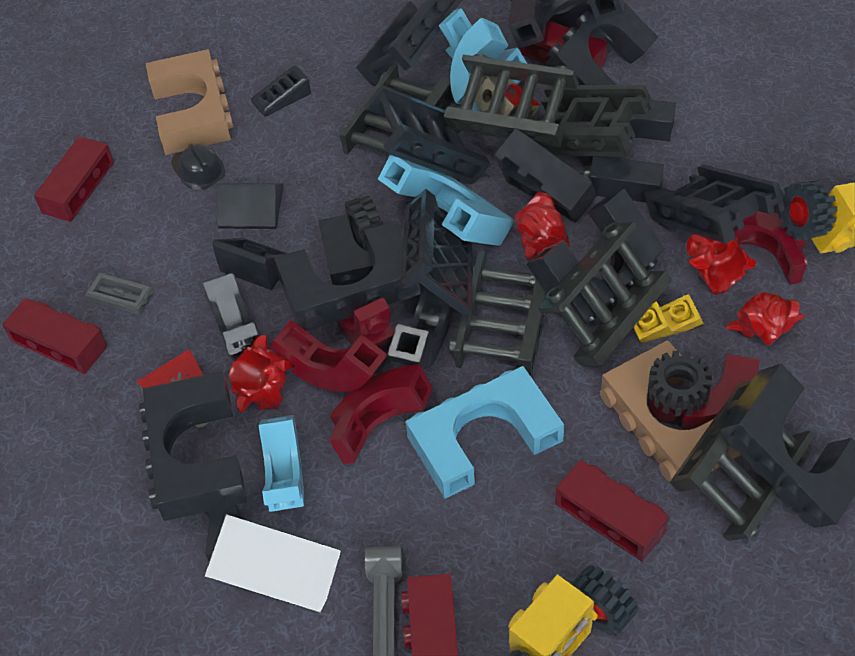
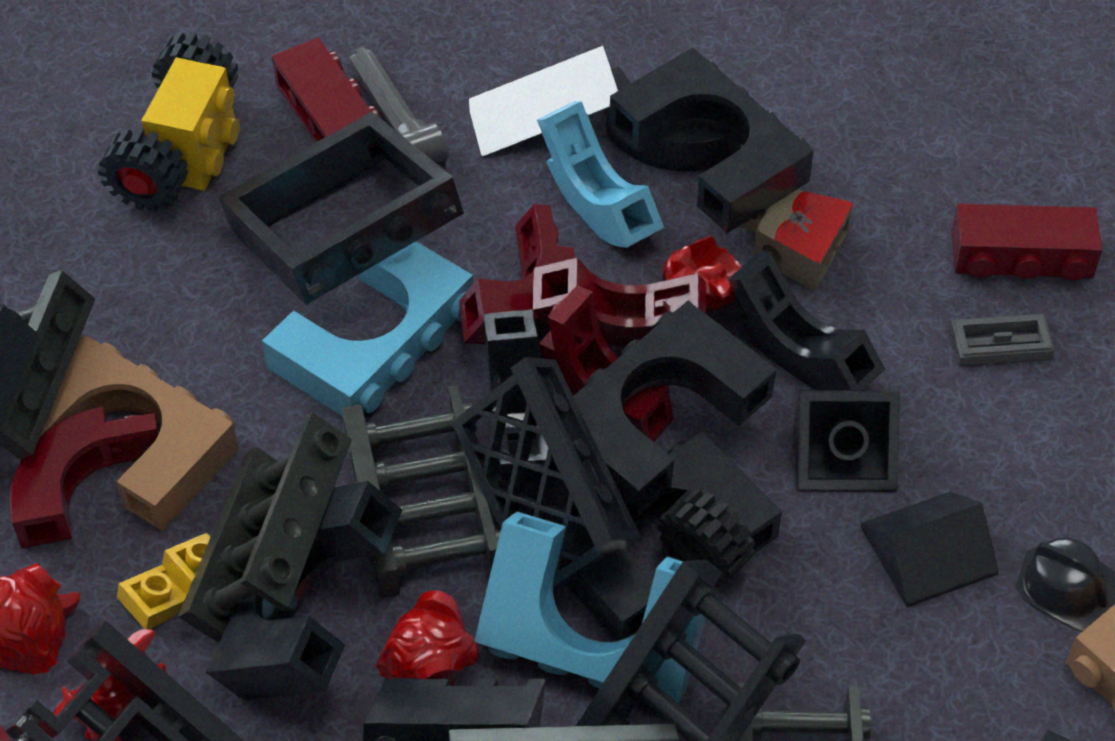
camera: 150 degrees right, 0 degrees up
(480, 560) = (317, 170): none -> black window
(611, 509) = (169, 286): dark red brick -> none
(679, 367) = (121, 447): black tyre -> none

